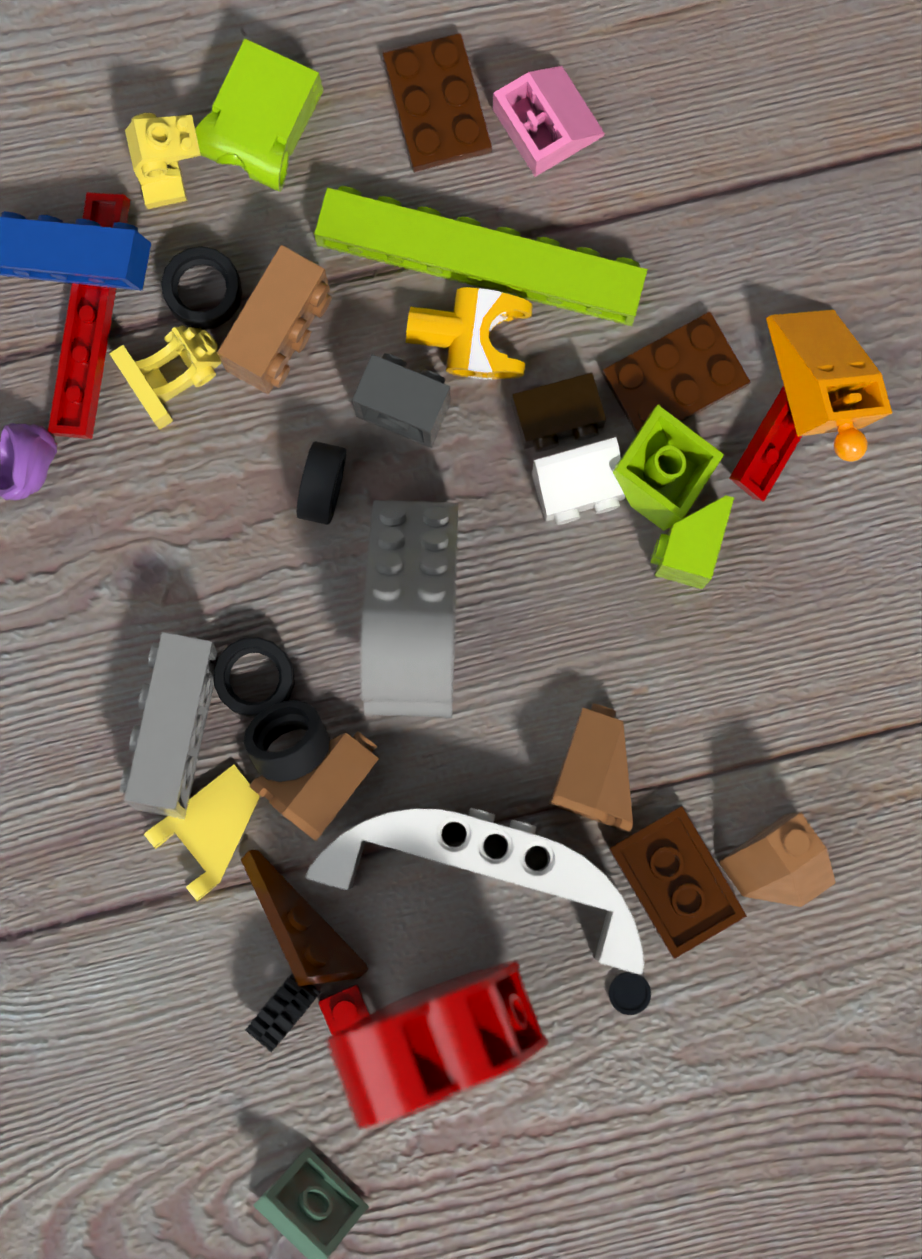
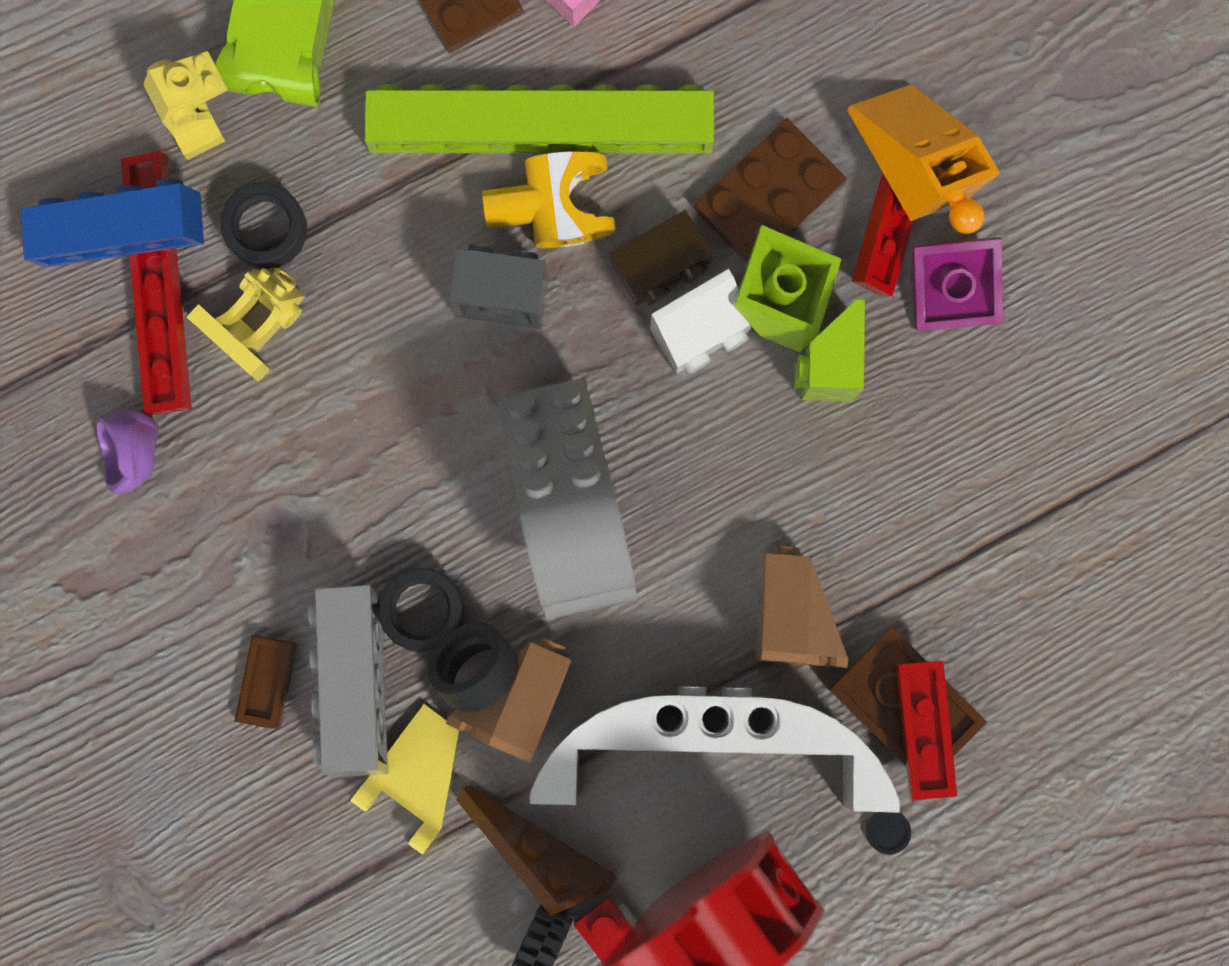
camera: 15 degrees left, 0 degrees up
(95, 706) = (266, 682): none -> reddish brown tile
(276, 320) = (349, 239): medium nougat brick -> none
(321, 482) = (438, 393): black tyre -> none
(688, 908) = (926, 730): none -> red plate
(781, 863) = (1008, 658): medium nougat slope -> none
(826, 505) = (957, 284): none -> magenta slope

